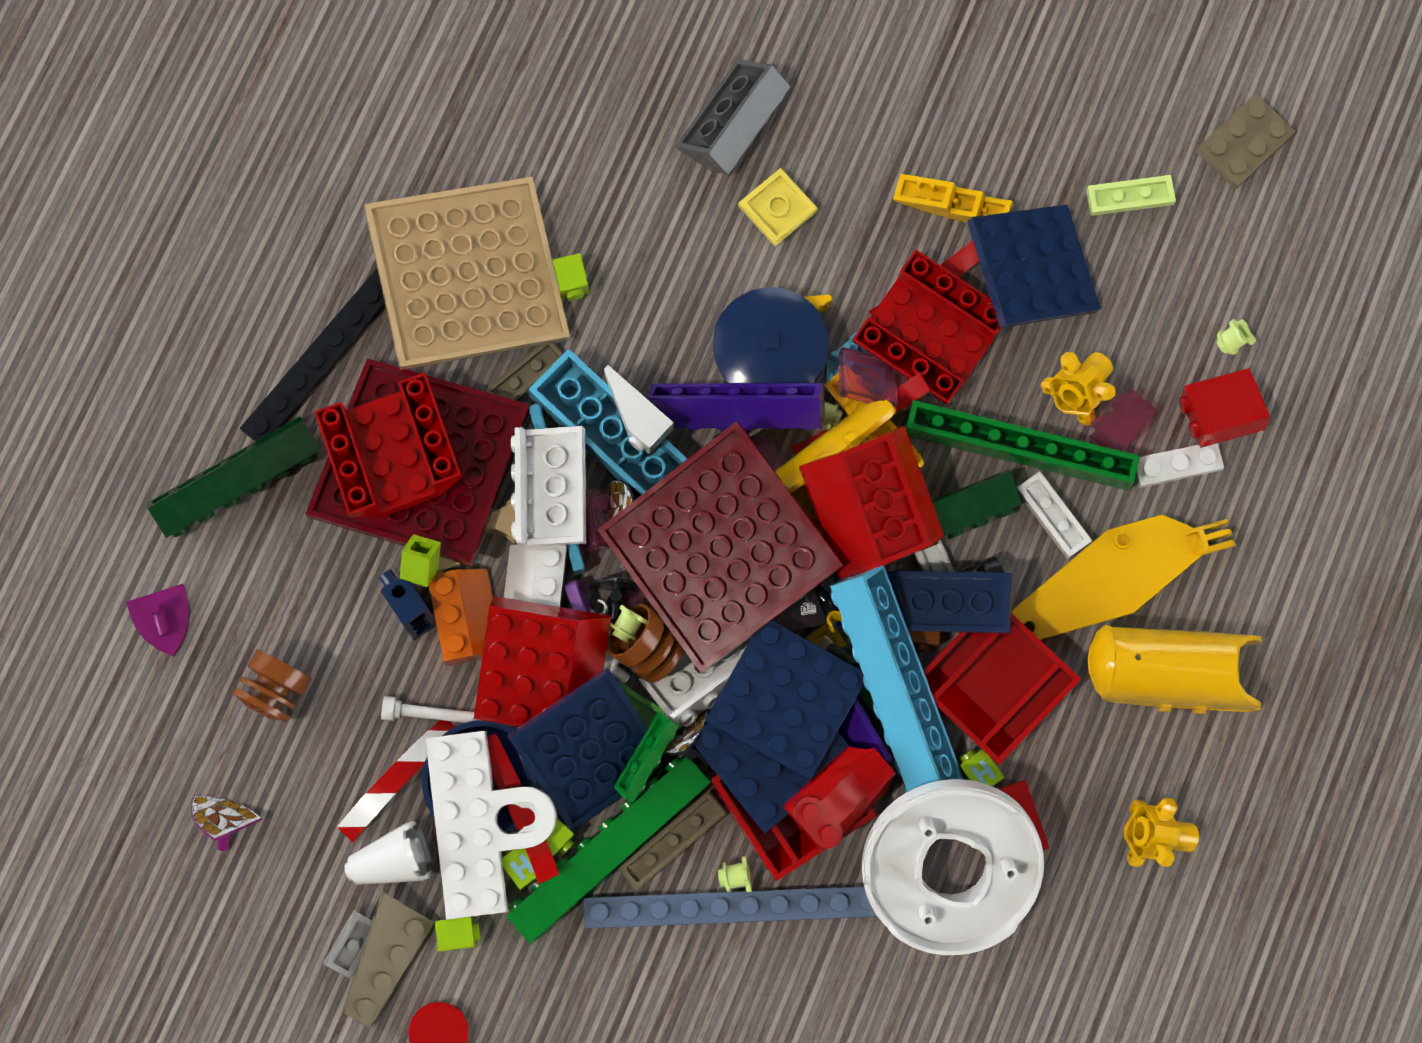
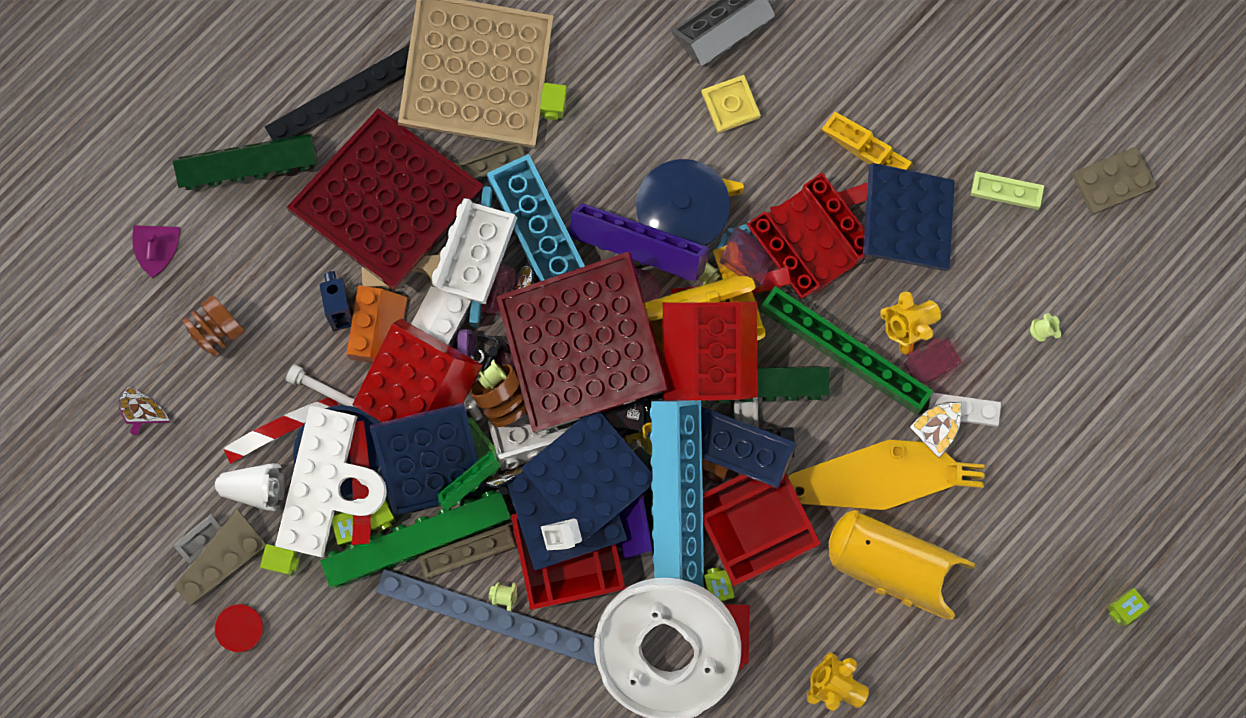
camera: 25 degrees right, 0 degrees up
(389, 450) = (364, 182): red slope -> none
(420, 560) = (356, 271): lime brick -> none
(641, 419) = (561, 225): white slope -> none
(783, 780) = (561, 534): none -> white slope
(840, 795) = (601, 562): red slope -> none
(1053, 515) = (851, 413): white plate -> none
(1160, 493) = (938, 426): none -> shield
(1224, 408) = (1015, 379): red brick -> none

